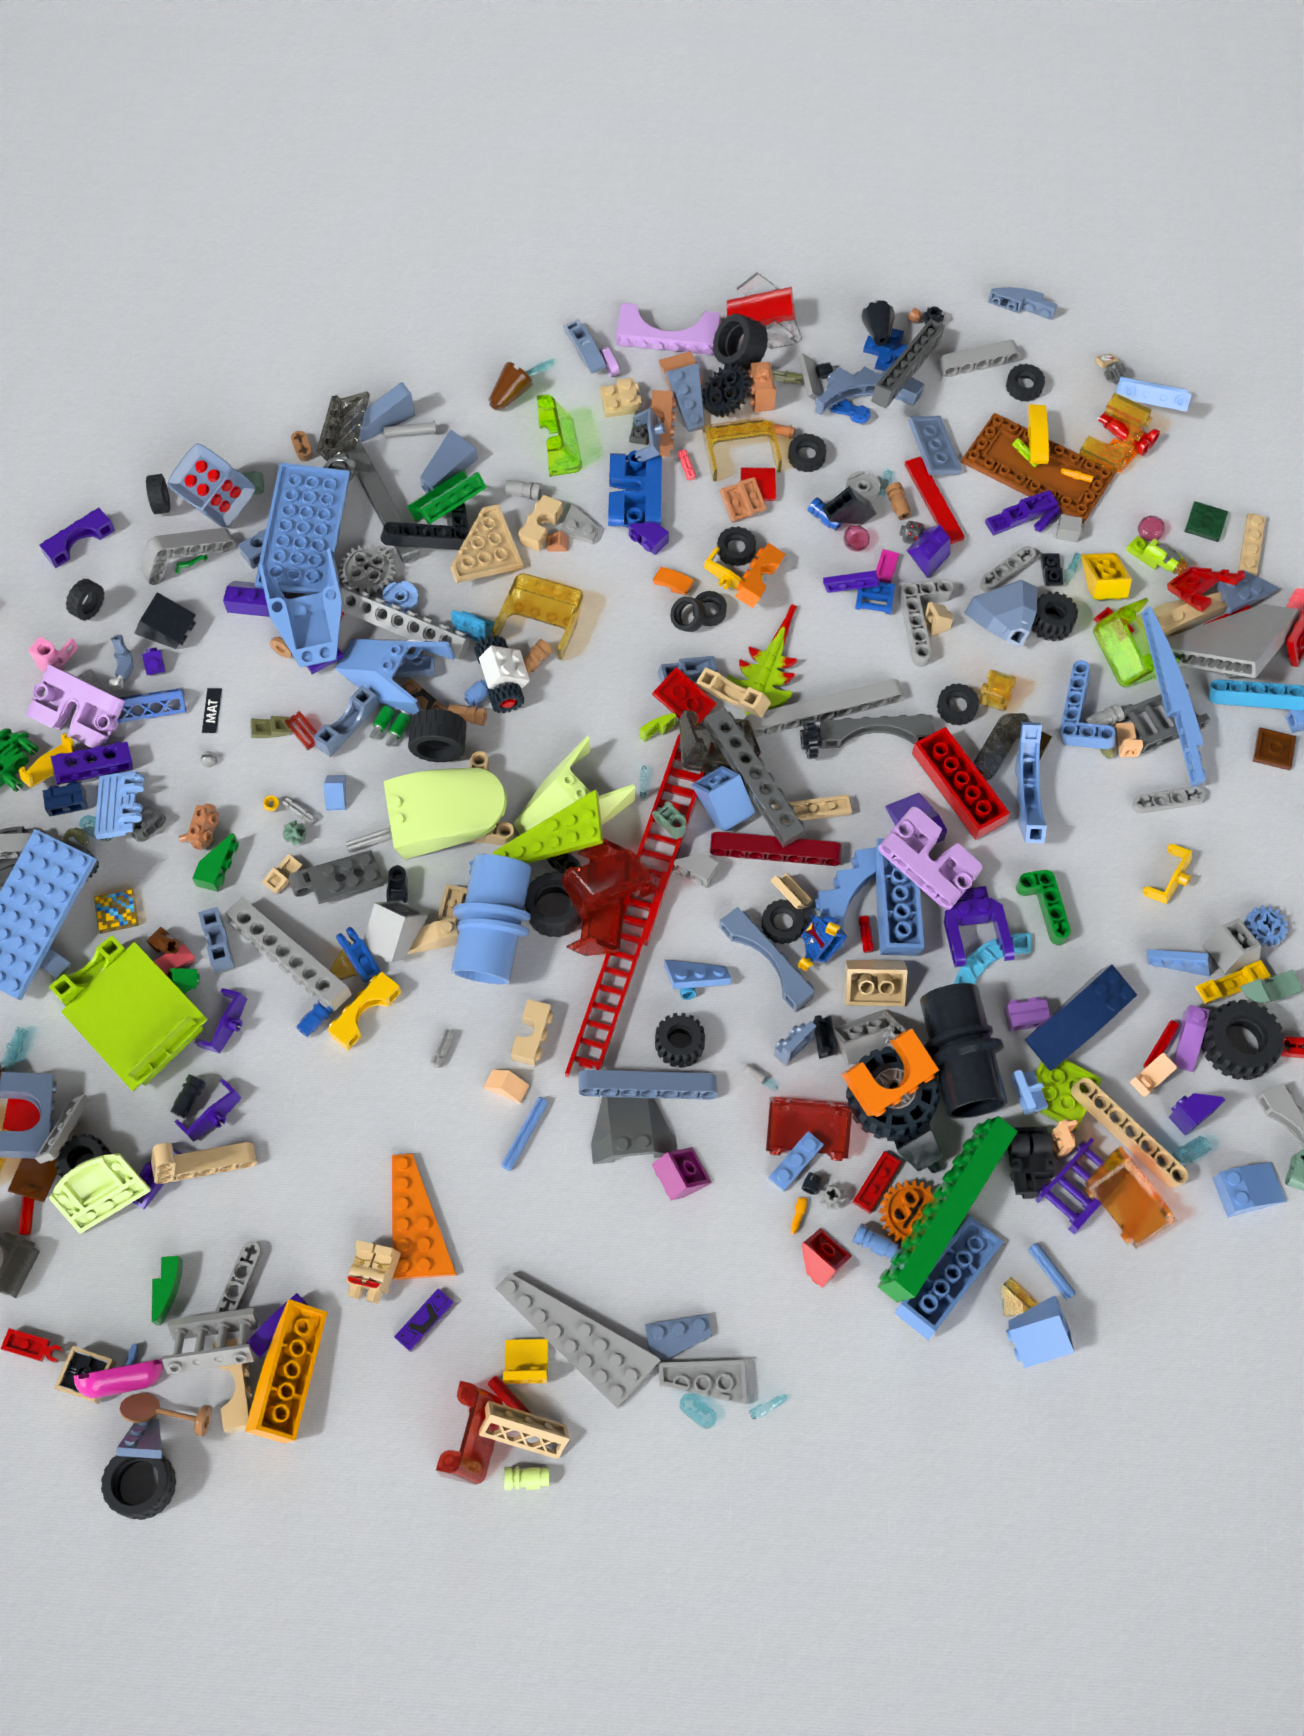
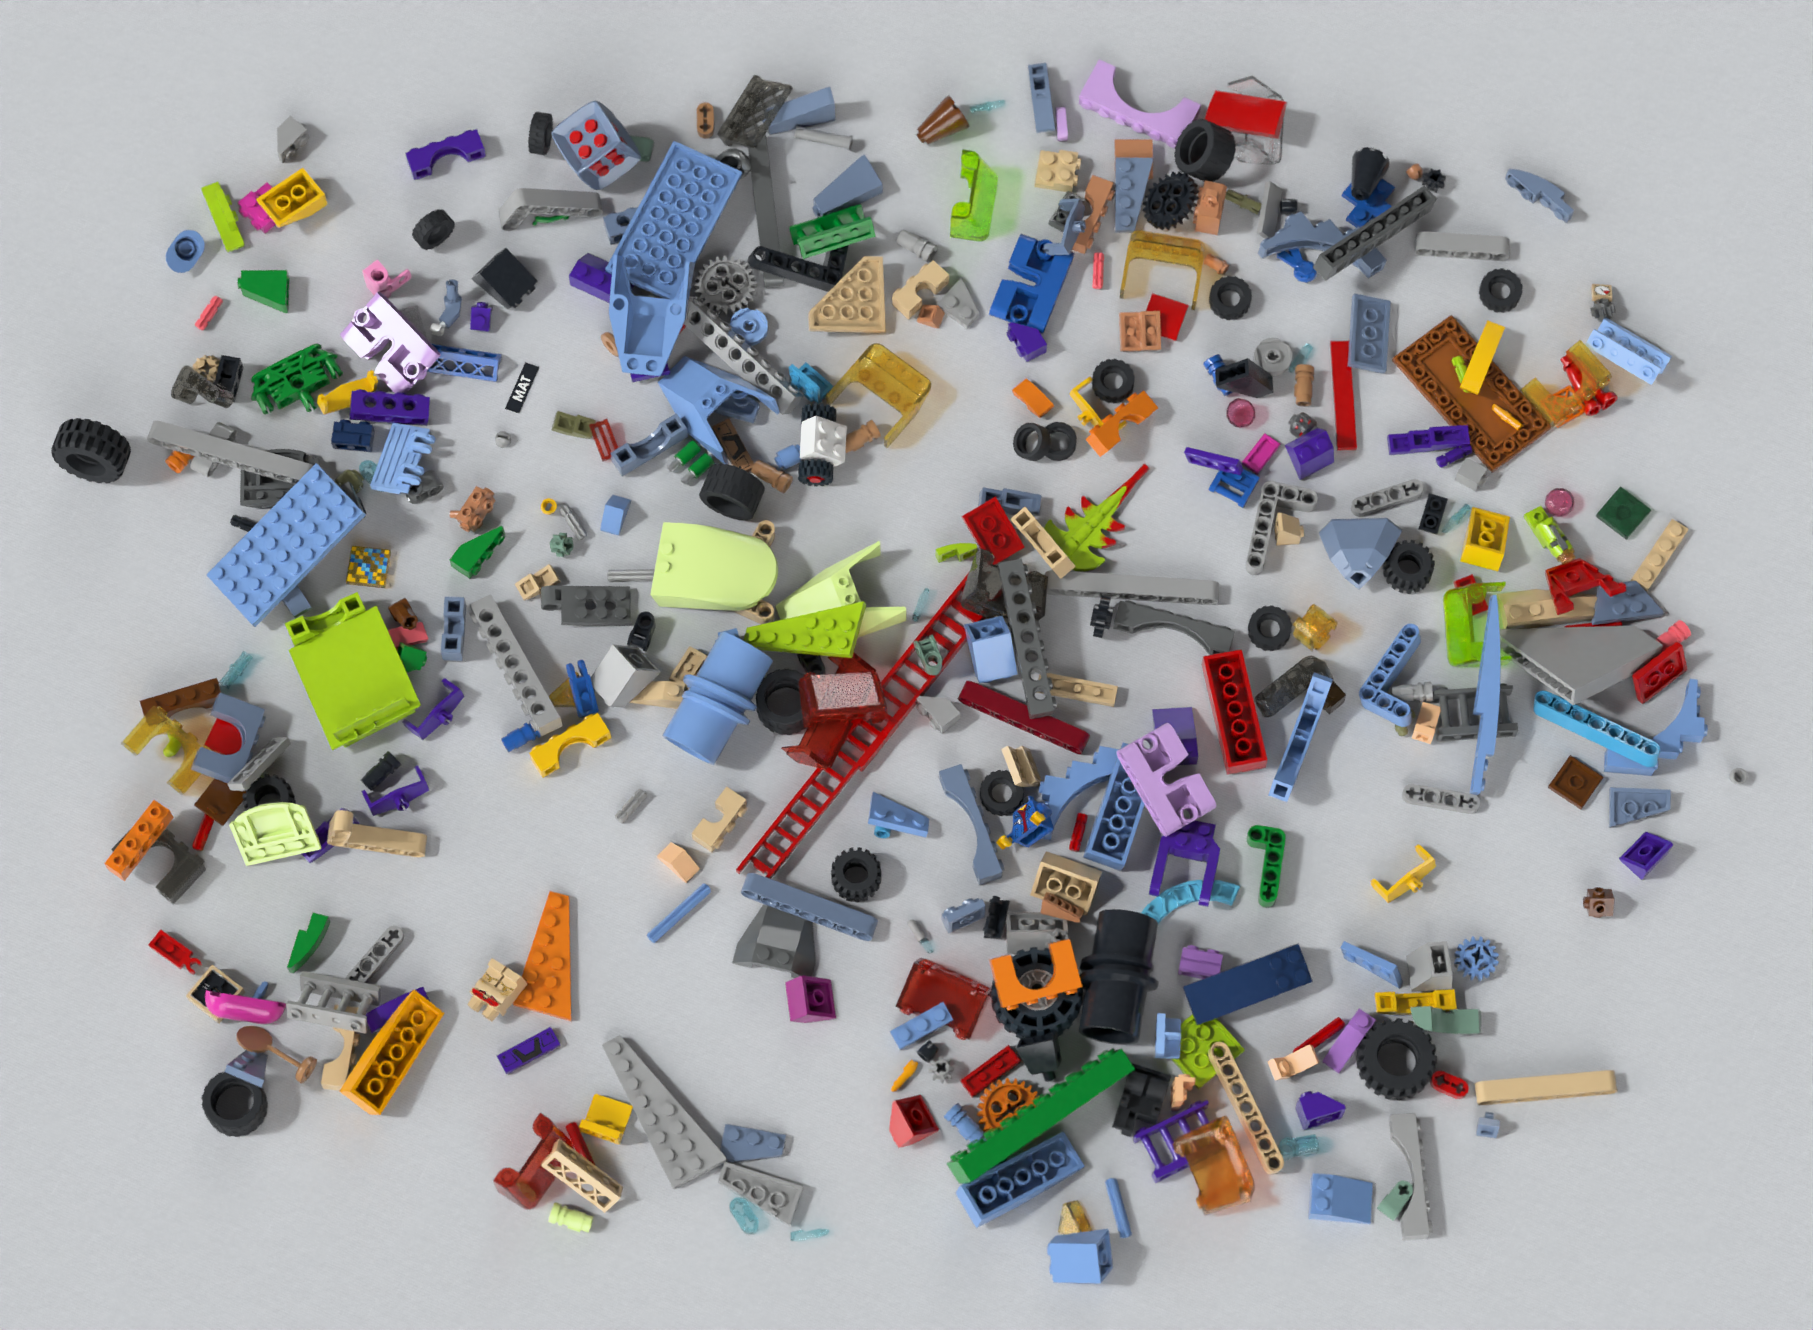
camera: 20 degrees right, 5 degrees up
(880, 1007) = (1060, 908): none -> nougat slope

